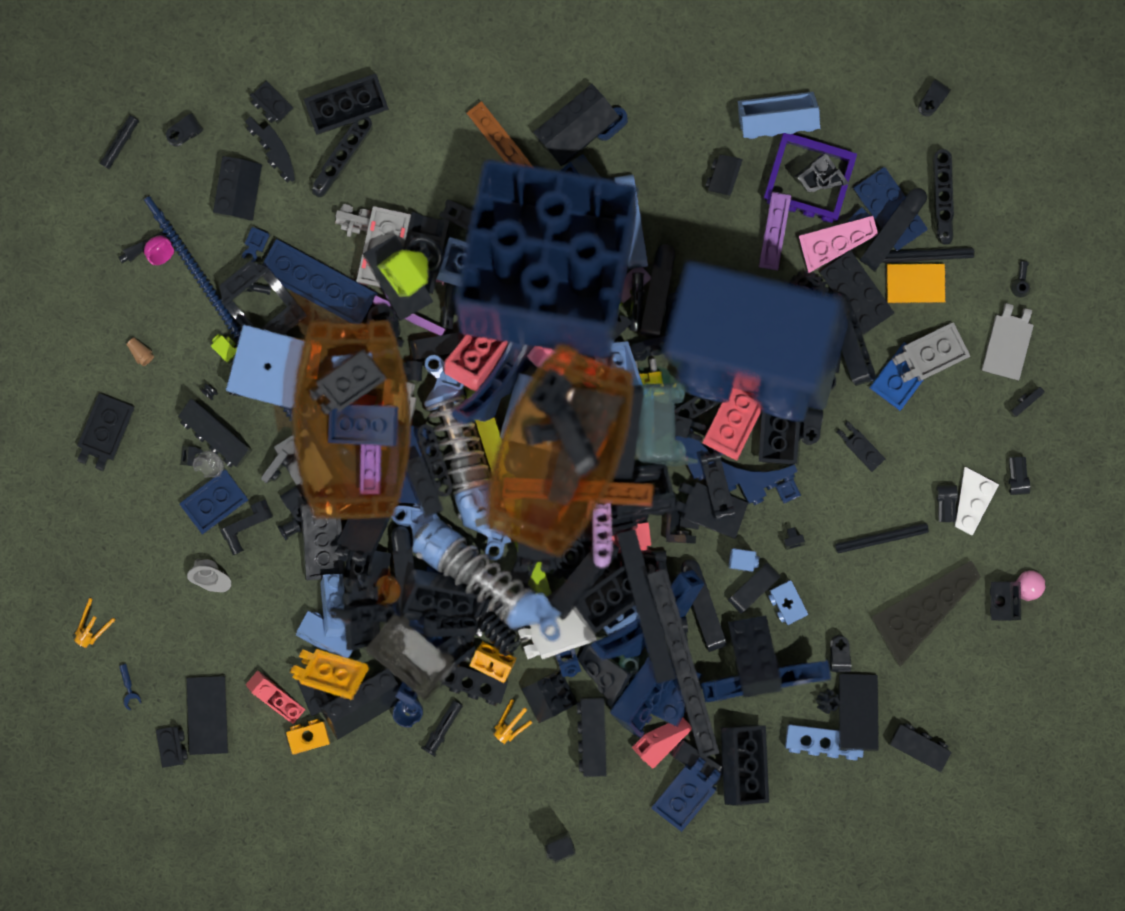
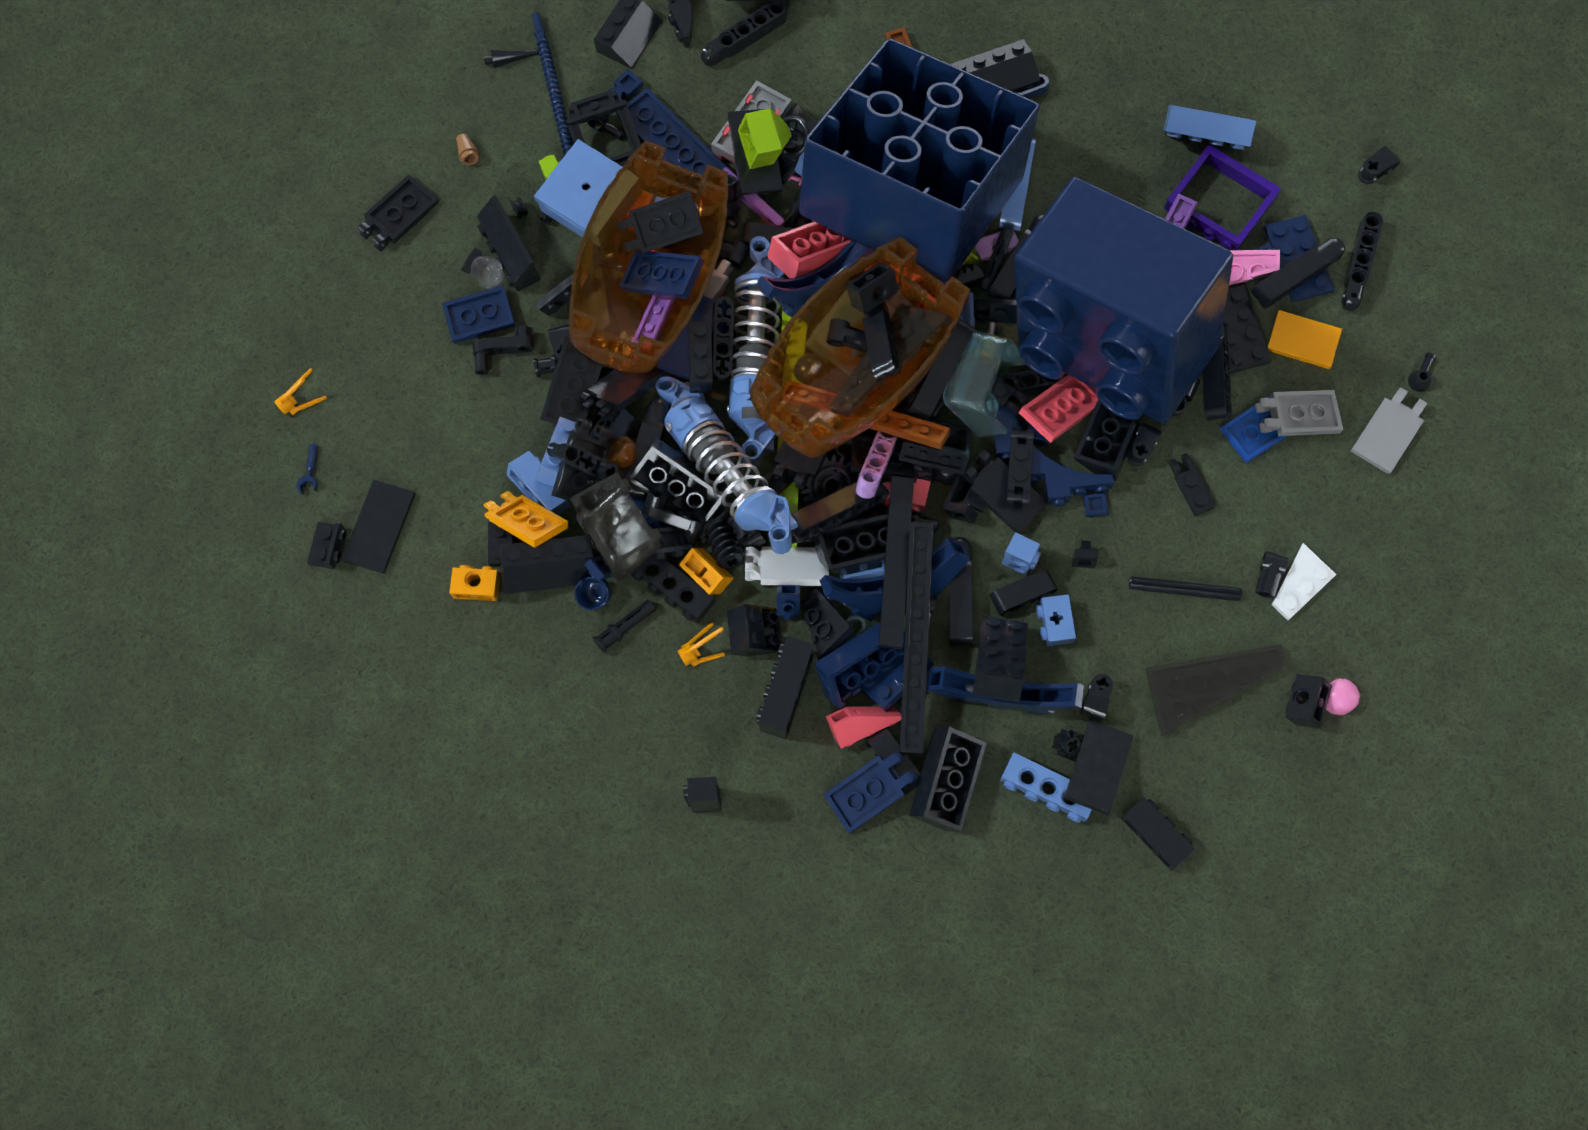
camera: 30 degrees right, 15 degrees down
(158, 250) = (522, 57): dark pink hair -> none
(207, 575) = (440, 383): light grey piece -> none
(274, 697) = (458, 531): coral slope -> none
(351, 222) = (728, 93): light grey hips -> none
(724, 176) = (1131, 169): black slope -> none
(820, 175) = (1235, 194): black slope -> none
(925, 255) = (1326, 315): black axle -> none
(1018, 476) = (1361, 576): black piece -> none
(1025, 401) = (1393, 496): black plate -> none

